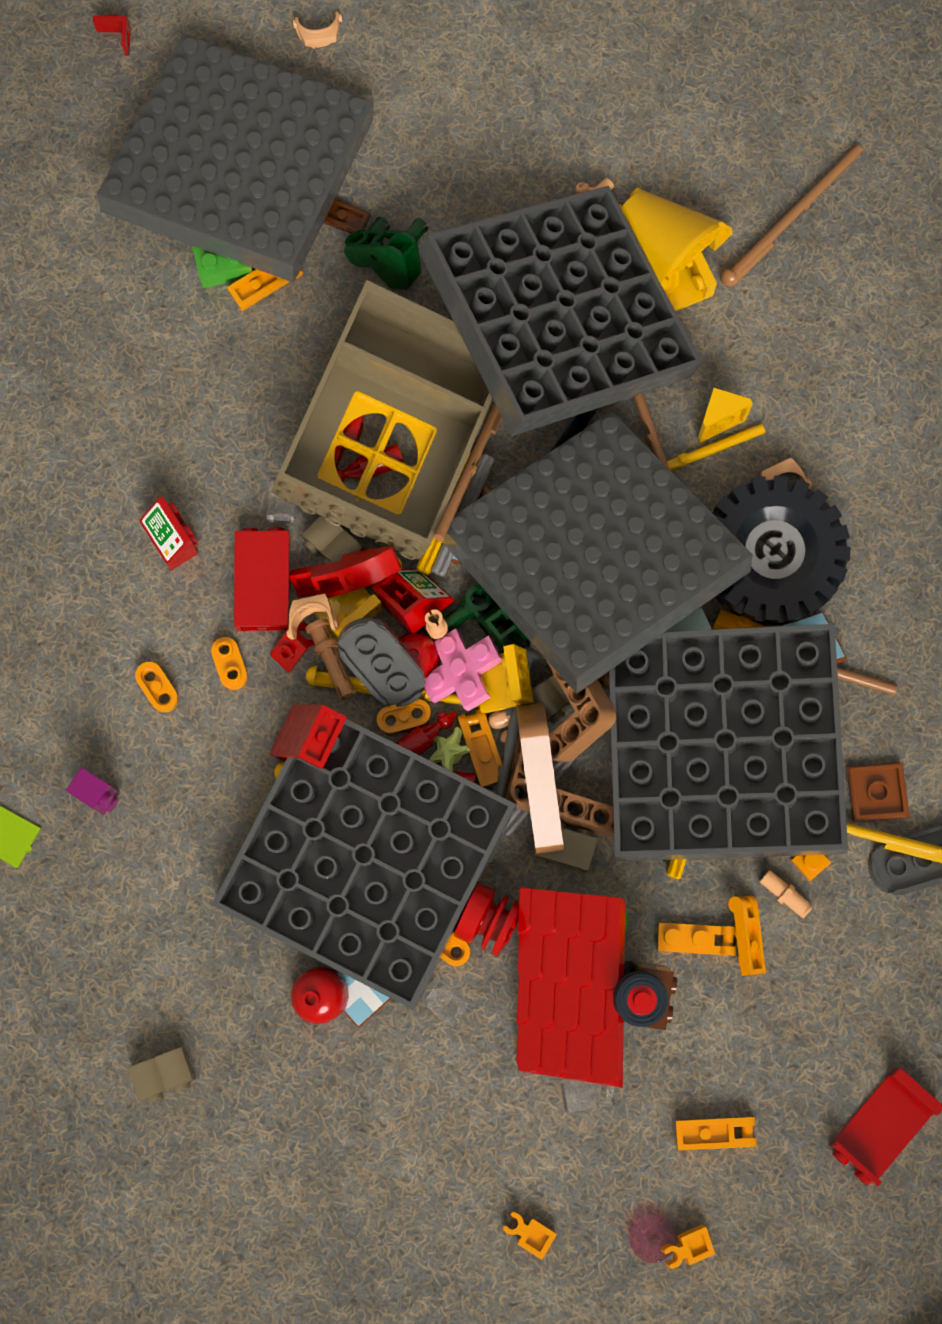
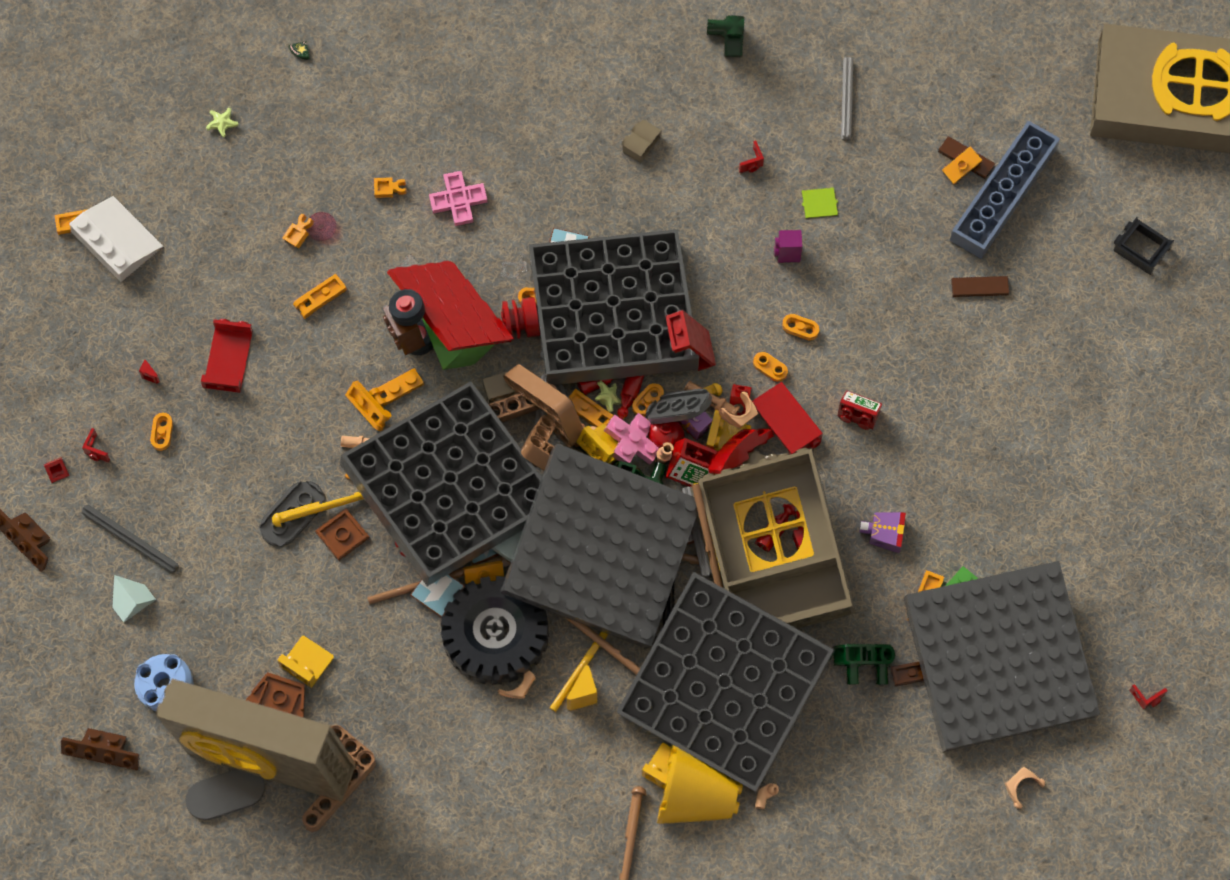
camera: 145 degrees right, 10 degrees down
(49, 939) = (753, 164): none -> red bracket
(248, 380) = (885, 530): none -> medium lavender torso
(319, 995) = (585, 225): red cylinder -> none
(450, 1154) = (458, 198): none -> bright pink plate

